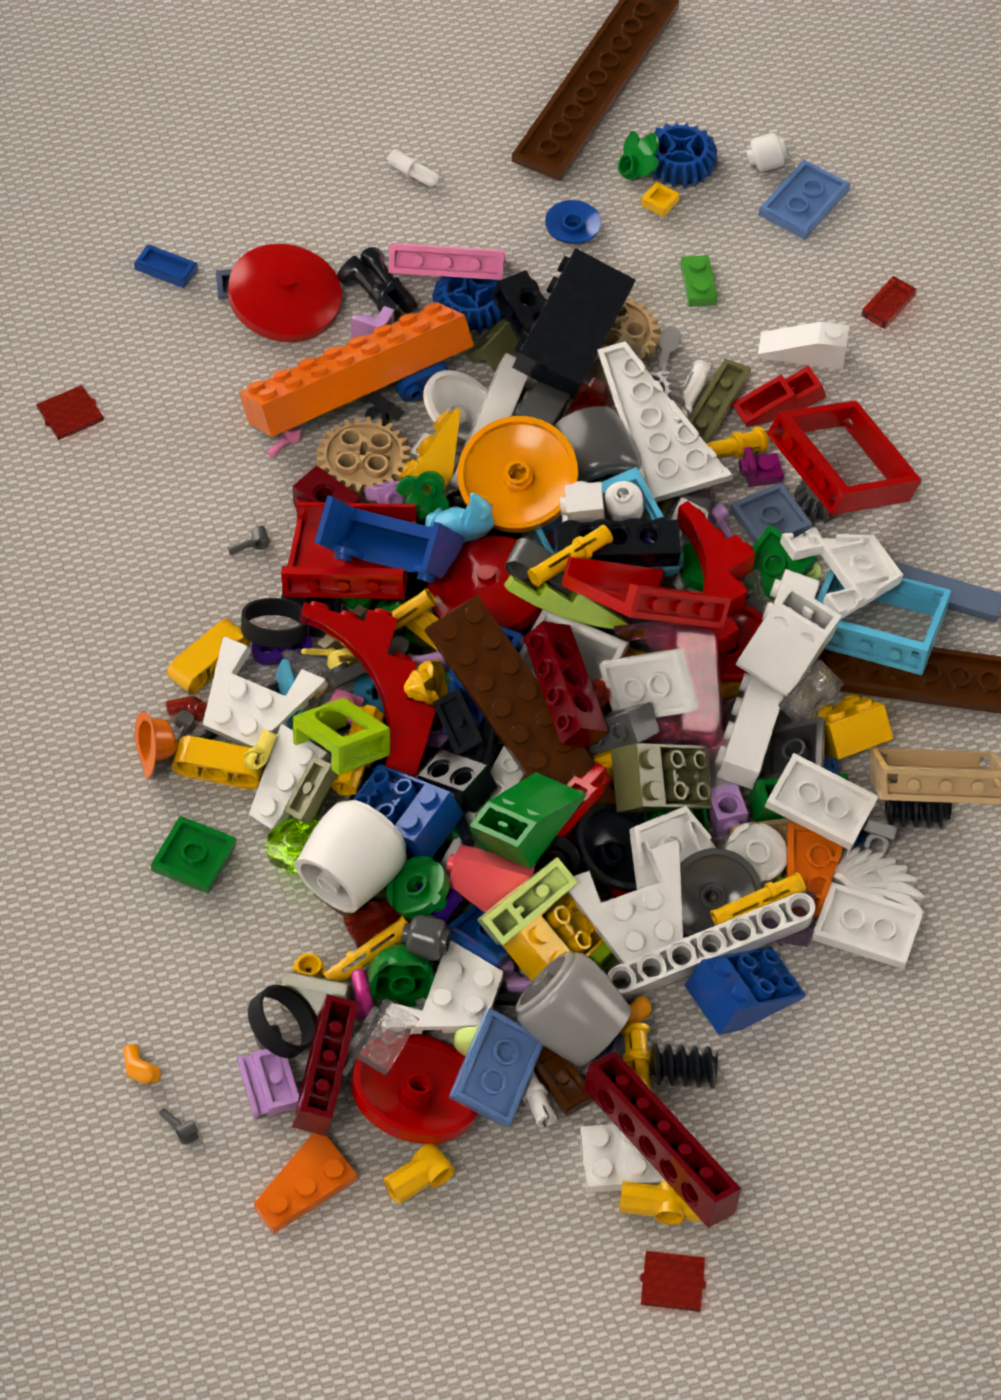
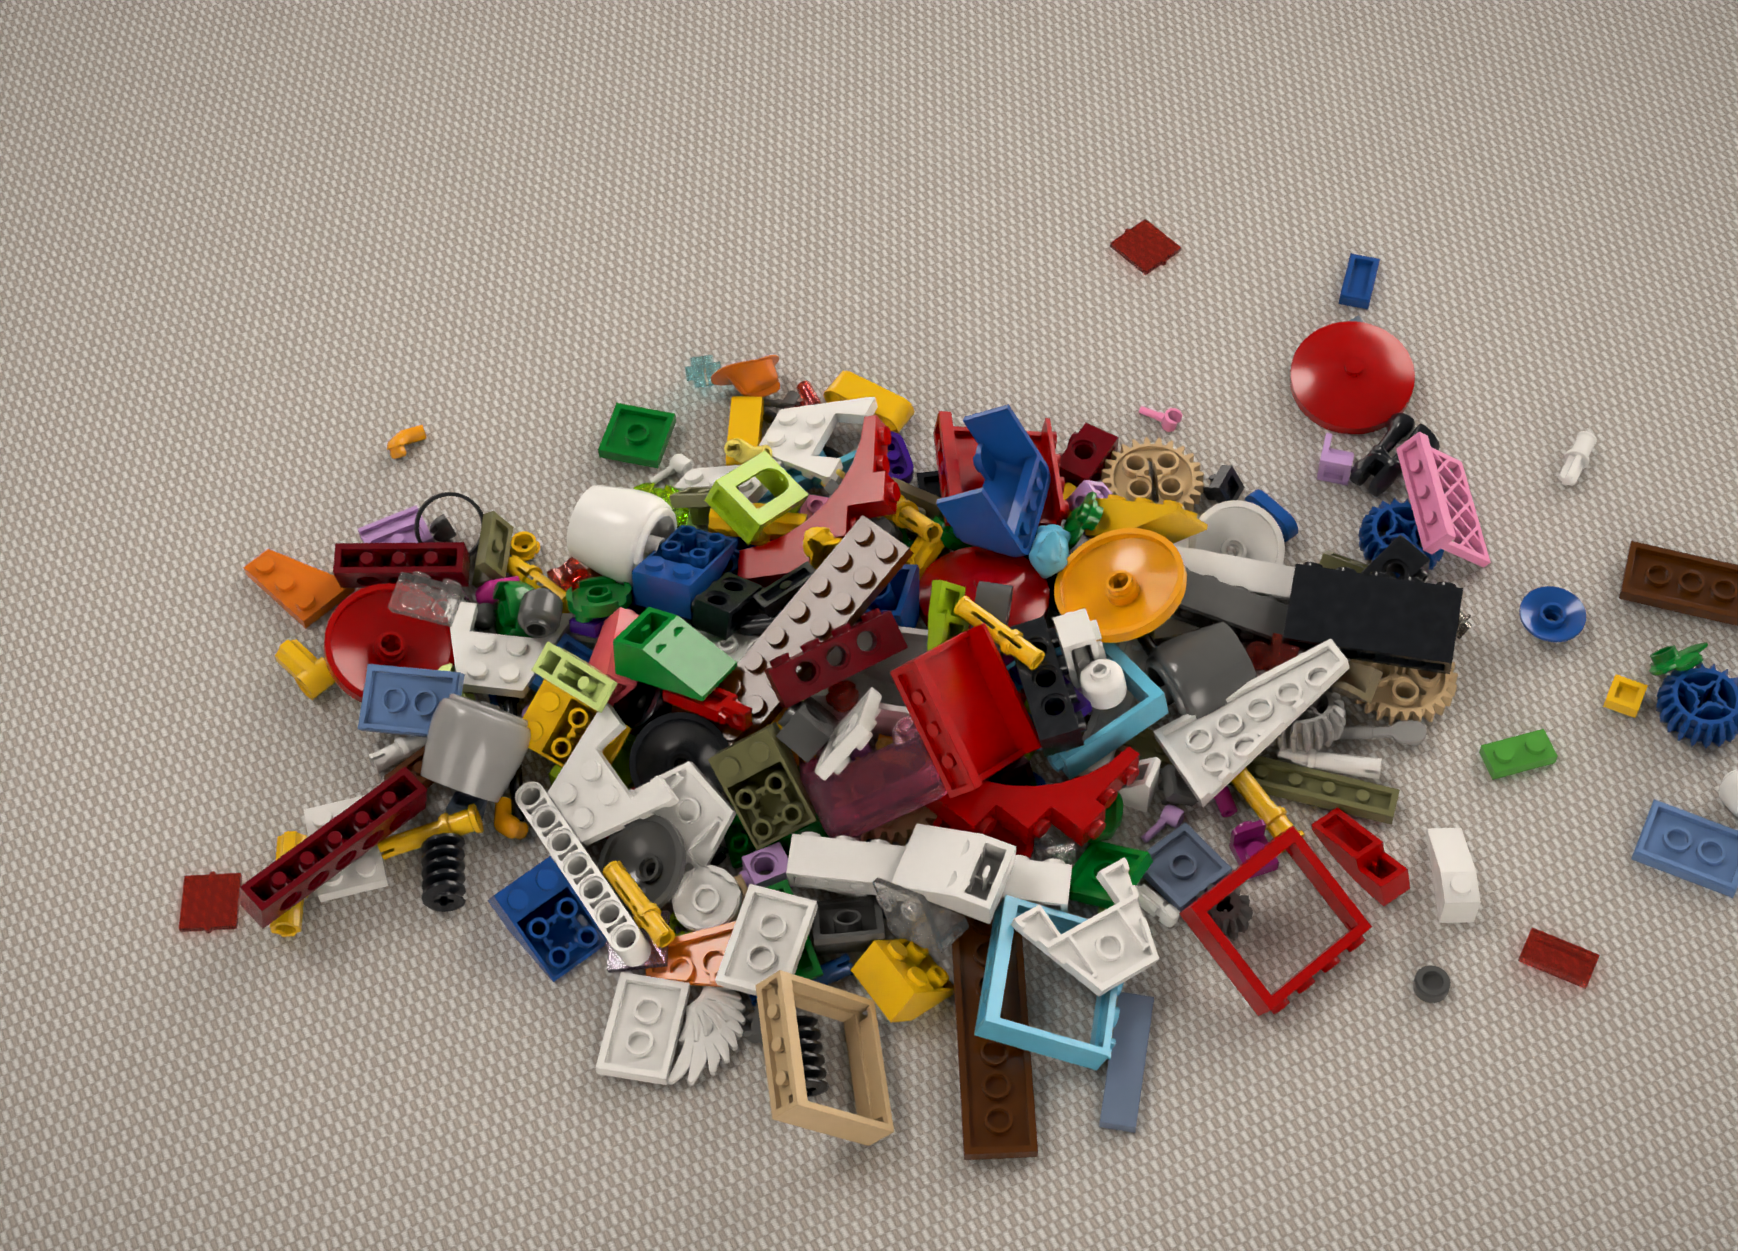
camera: 85 degrees right, 0 degrees up
(131, 784) = (701, 370): none -> clear light blue gear
(186, 1132) = (340, 485): dark grey hand -> none
(238, 825) = (678, 463): none -> white hand
(258, 540) = (1026, 417): dark grey hand -> none
(270, 637) = (925, 422): black tyre -> none
(355, 369) = (1258, 448): orange brick -> none
(899, 384) = (1431, 984): none -> dark grey tile

